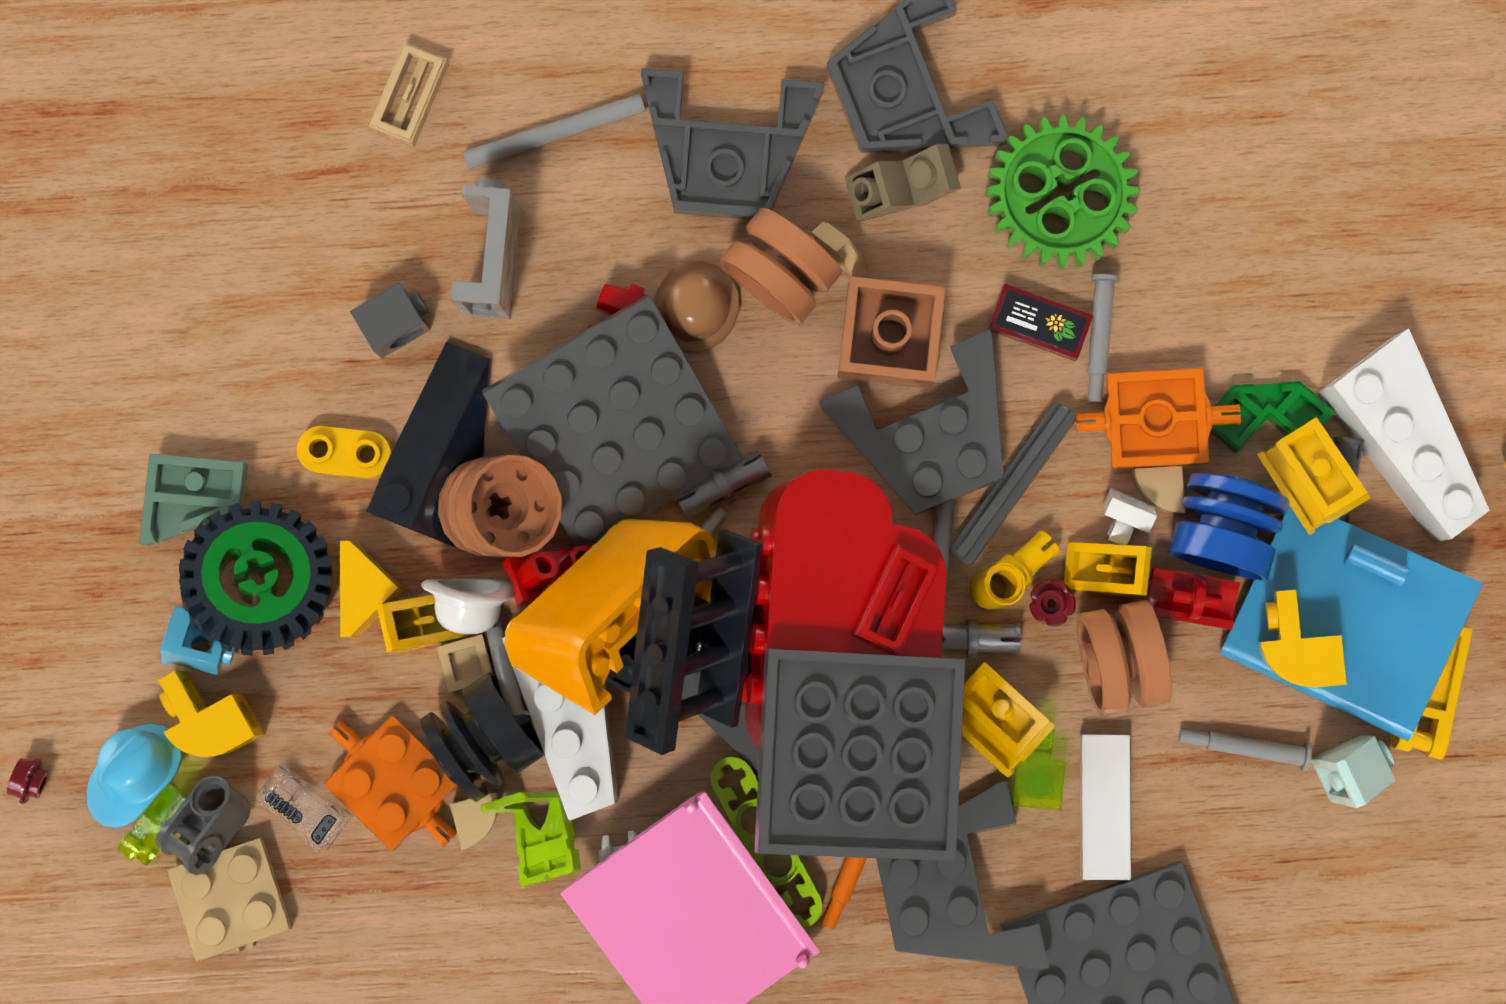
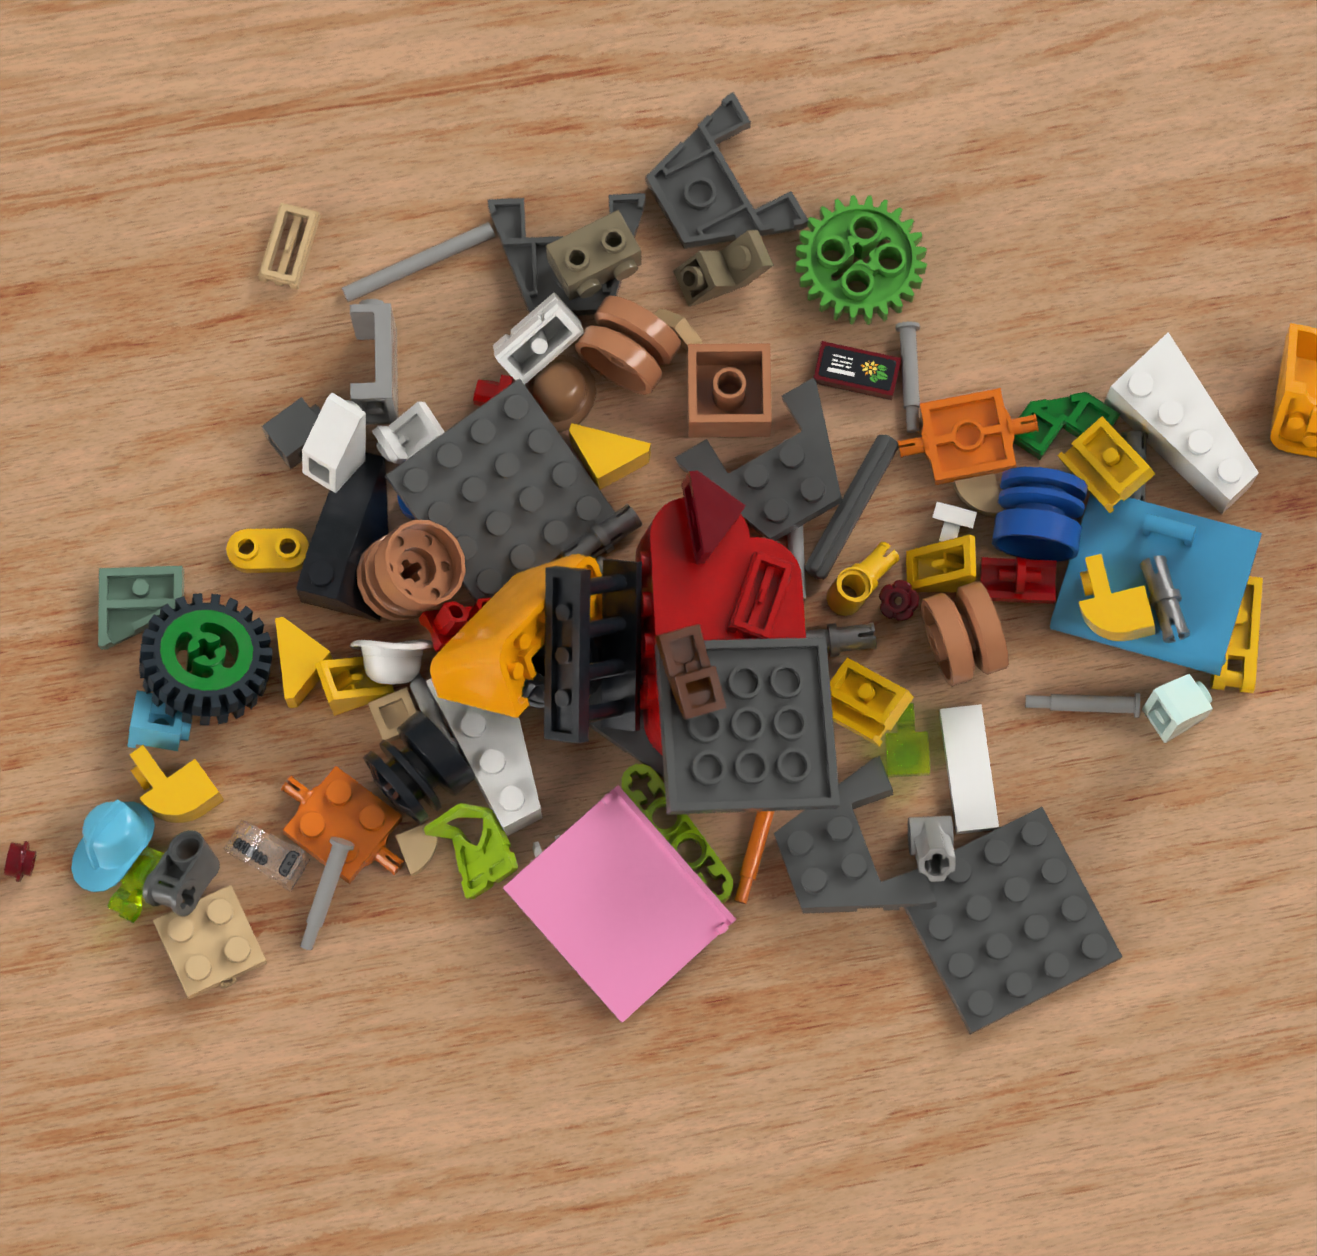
camera: 10 degrees left, 10 degrees down
(383, 819) = (326, 889): none -> light grey piece
(430, 344) = (335, 443): none -> white slope
(518, 339) = (407, 433): none -> white bracket
(678, 246) = (538, 339): none -> white brick
(742, 391) = (608, 455): none -> yellow slope
(755, 154) = (594, 256): none -> dark tan brick
(802, 692) = (689, 671): none -> reddish brown slope
(849, 499) = (709, 513): none -> dark red slope
(1054, 893) = (933, 845): none -> light grey piece
(1360, 648) = (1164, 599): none -> flat silver pin

